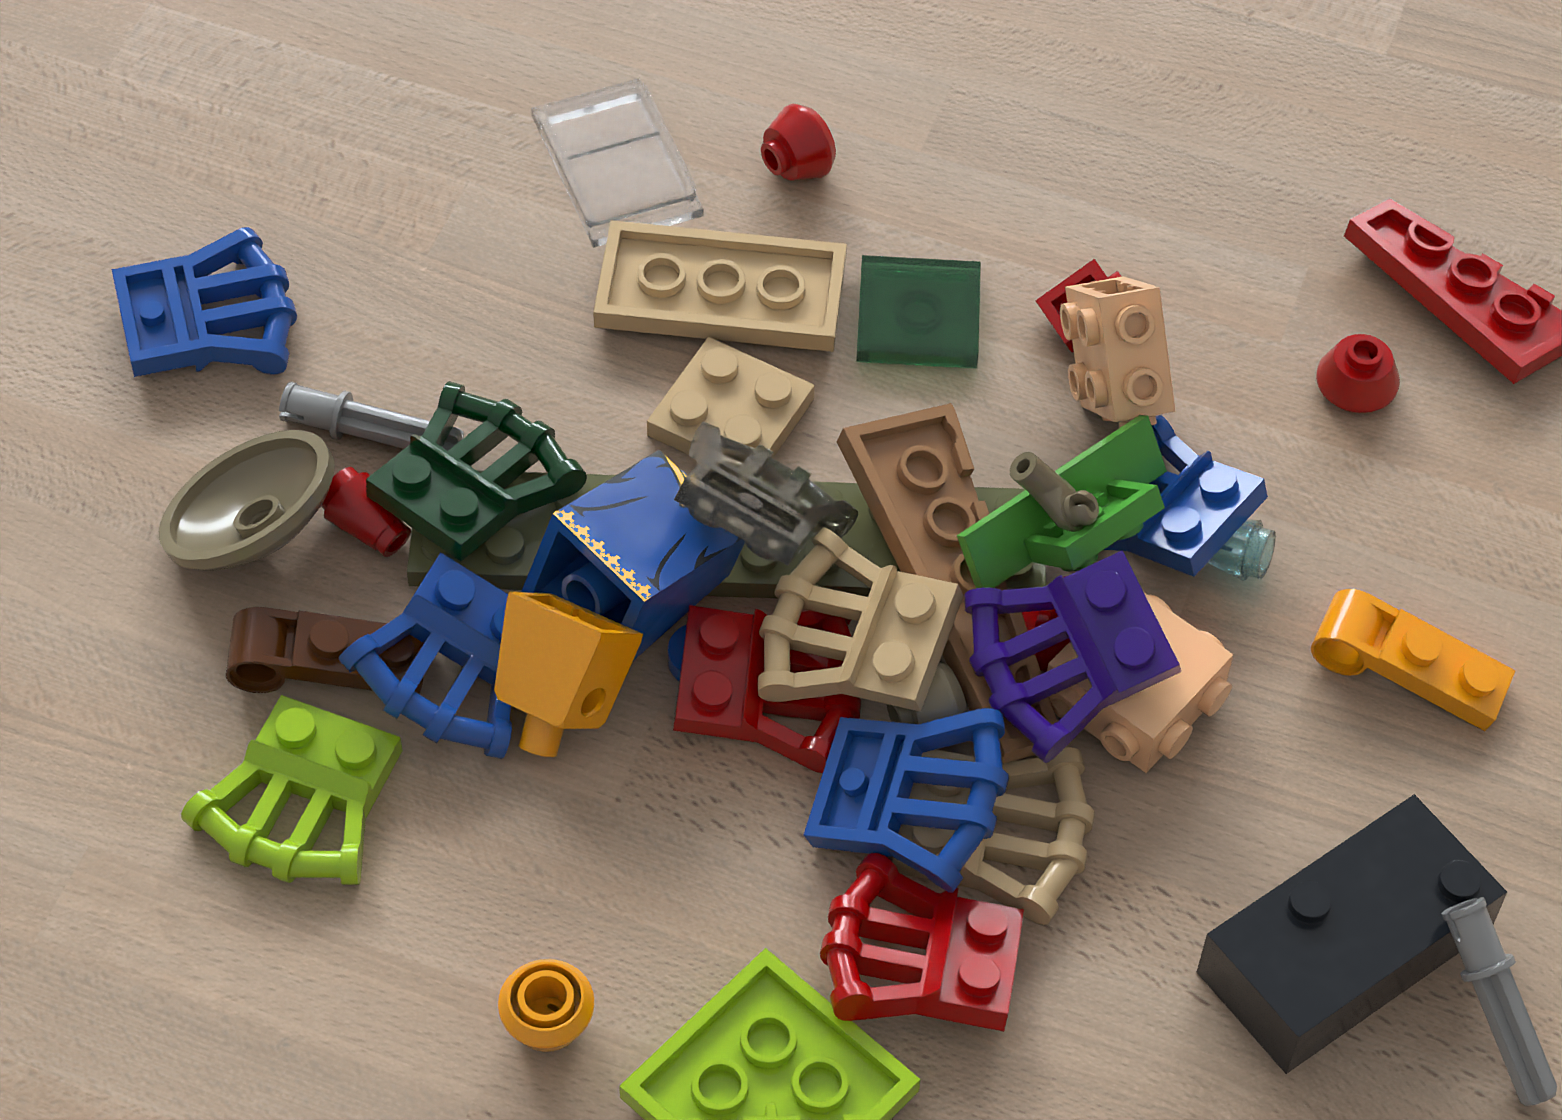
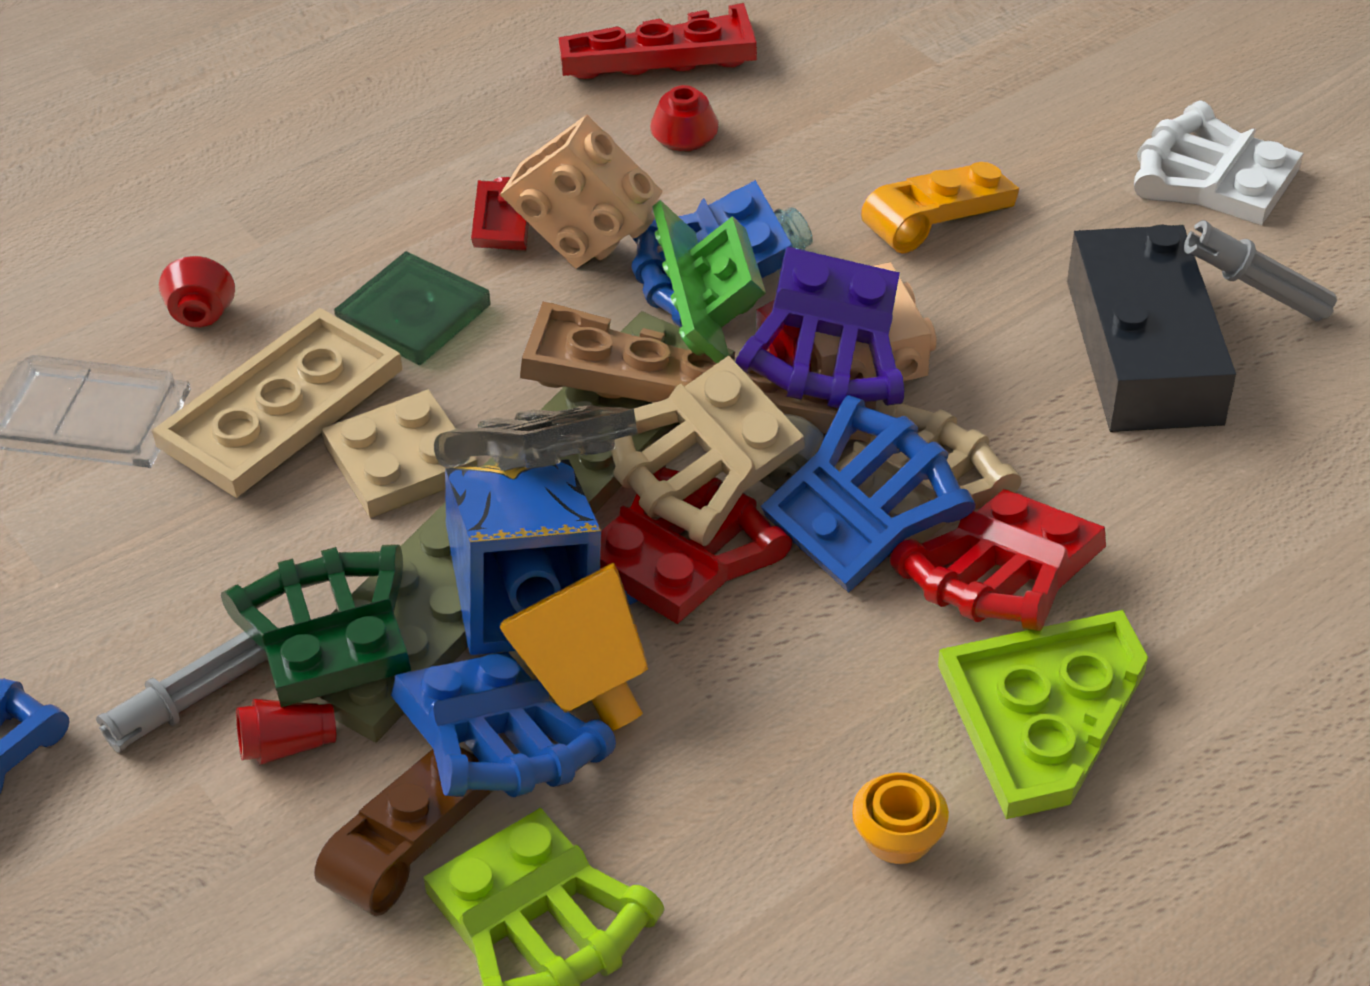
camera: 55 degrees left, 10 degrees down
(248, 501) = (206, 796): dark tan dish -> none
(1055, 495) = (694, 266): dark tan arm -> none

